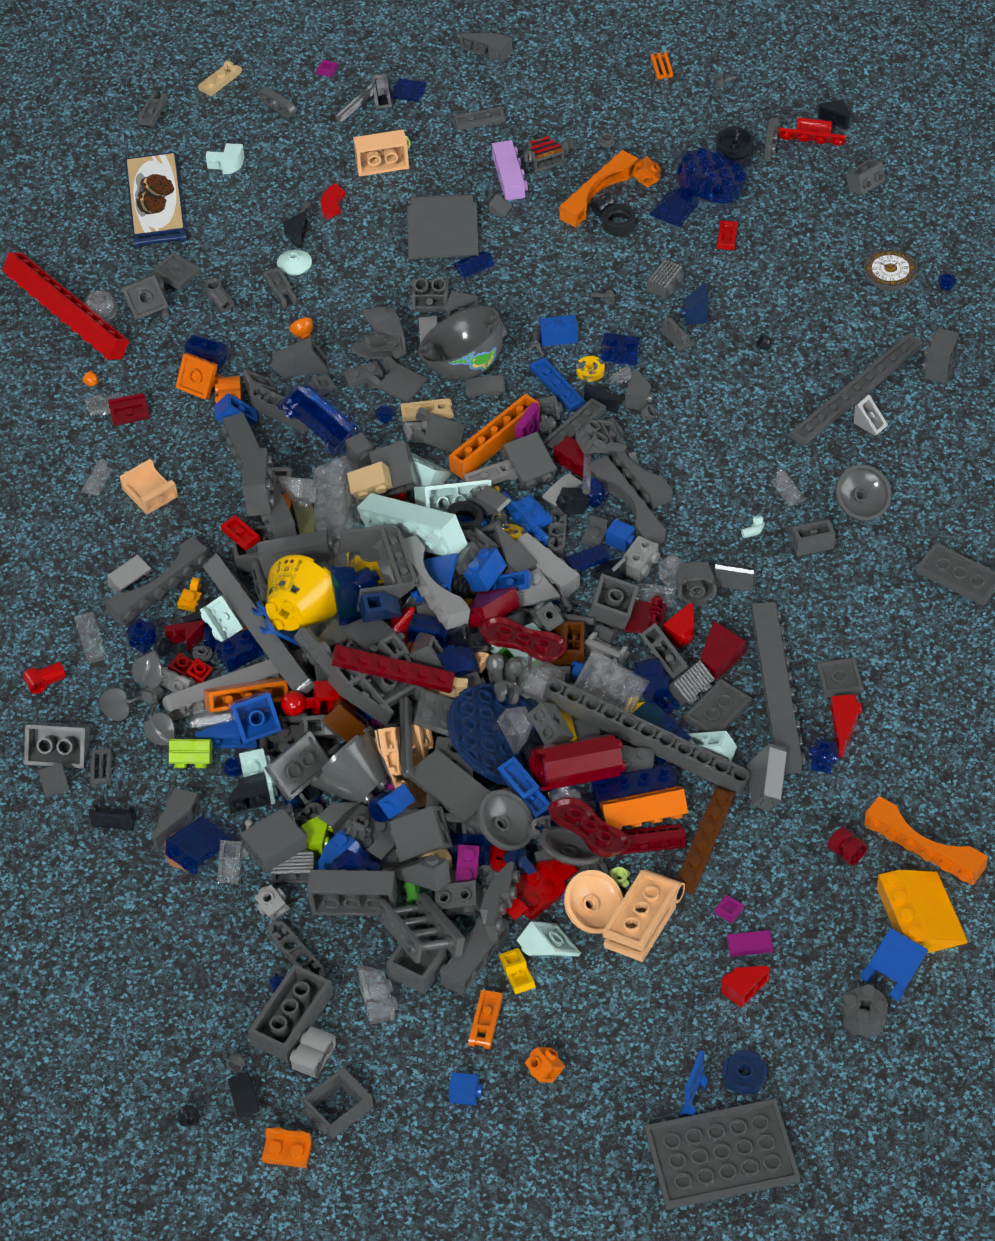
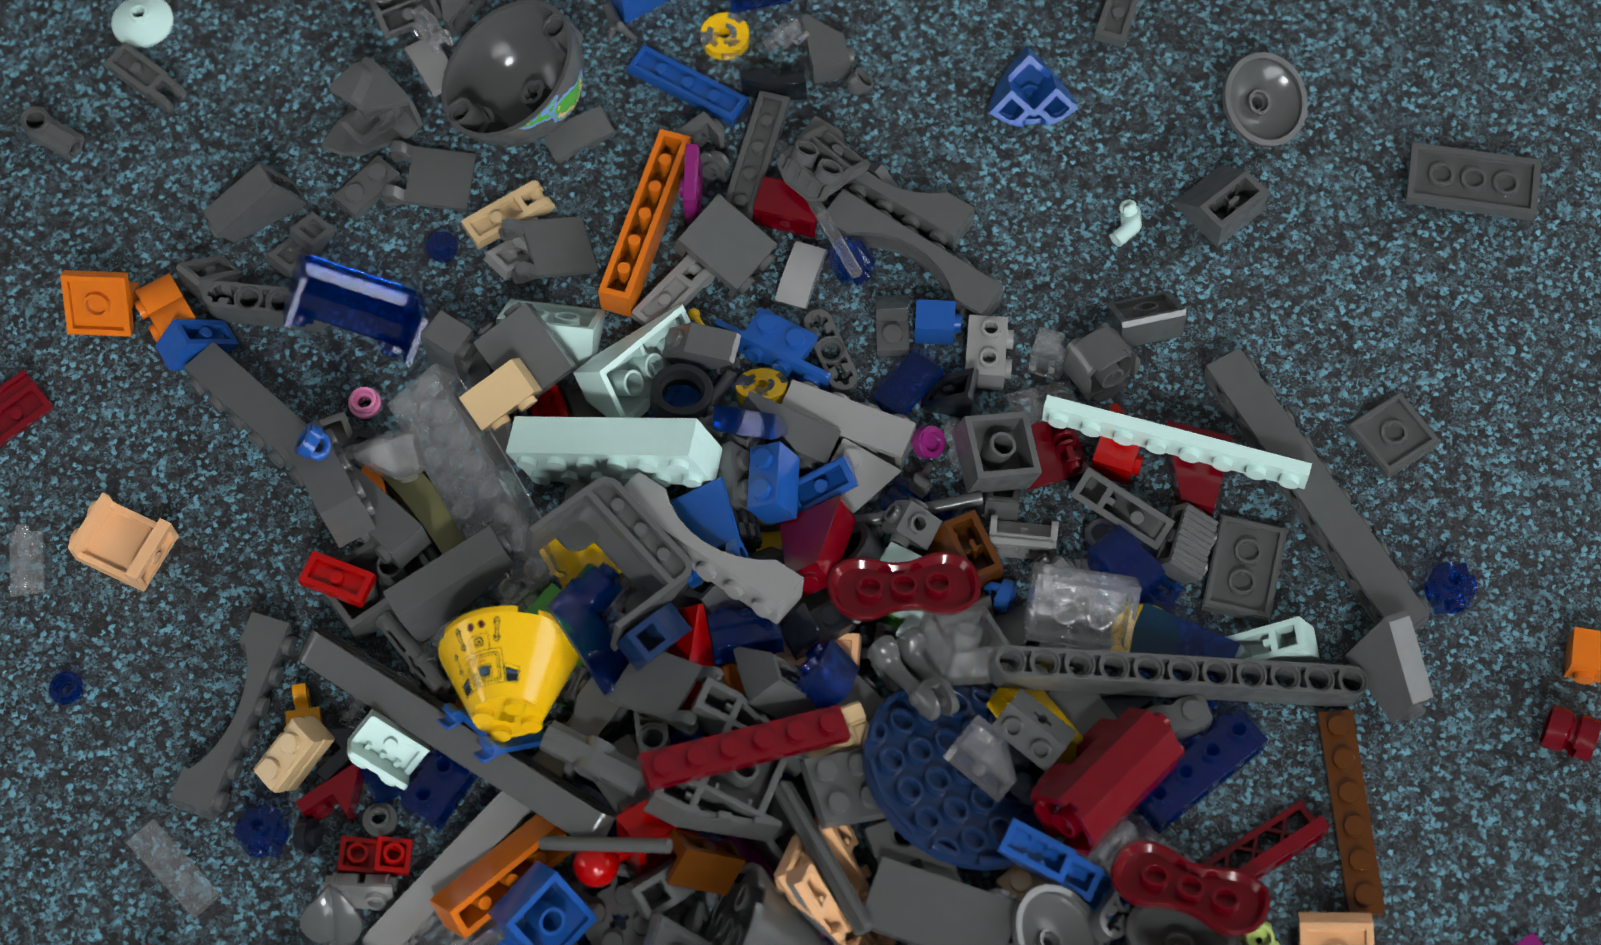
camera: 25 degrees left, 15 degrees up
(84, 540) = (62, 680): none -> clear blue plate
(127, 574) = (178, 725): light grey hinge -> none
(175, 604) = (293, 754): none -> tan brick
(207, 349) = (88, 249): clear blue brick -> none
(254, 452) = (309, 440): none -> blue tile
(301, 691) = (606, 844): none -> dark grey bar
(302, 328) = (225, 143): orange brick -> none
(303, 468) = (361, 395): none -> bright pink plate
(434, 310) = (428, 29): none -> clear plate
(487, 536) = (748, 423): none -> clear blue slope
(572, 501) = (830, 291): black brick -> none
(583, 588) = (928, 442): none -> magenta tile
(644, 807) = (1236, 802): orange brick -> none
(711, 629) = (1185, 444): none -> light aqua plate
(729, 909) = (1450, 919): magenta tile -> none
(737, 449) = (1031, 93): none -> blue brick
(787, 489) = (1141, 135): clear hinge -> none
(844, 717) = (1443, 505): red slope -> none

